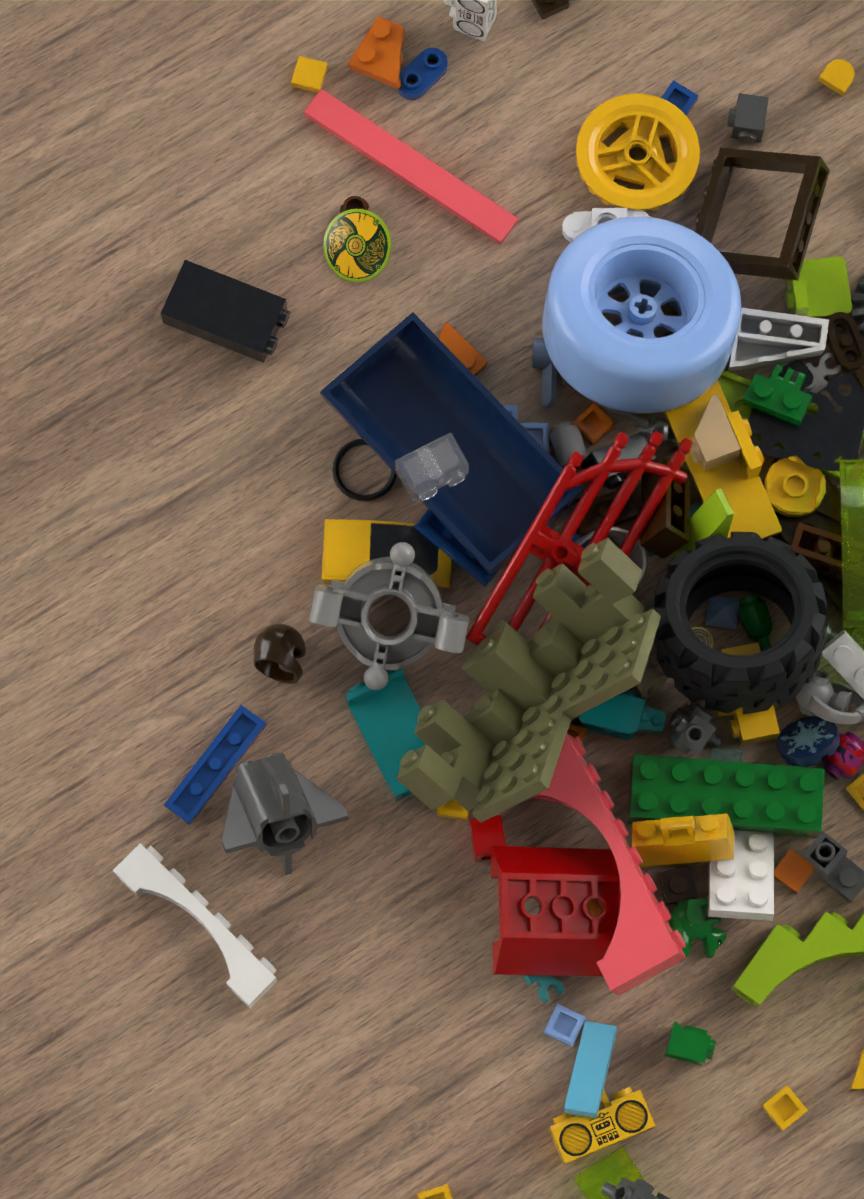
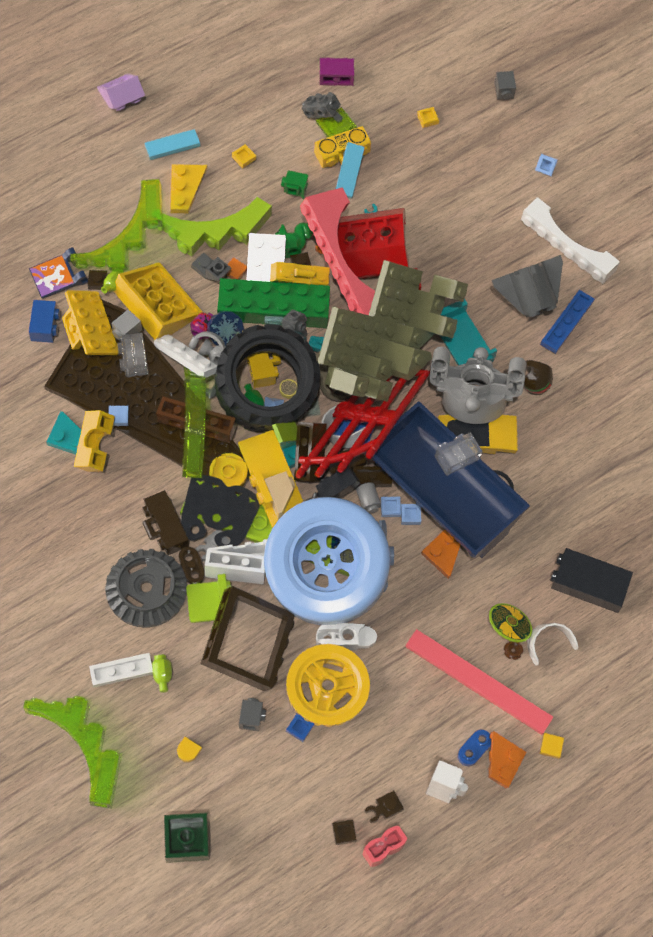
camera: 175 degrees right, 10 degrees down
(221, 1092) = (546, 164): none -> light blue slope
(302, 240) = (531, 641): none -> white piece
(564, 1025) = (363, 197): light blue tile -> none
(779, 395) = (236, 524): green hinge -> none

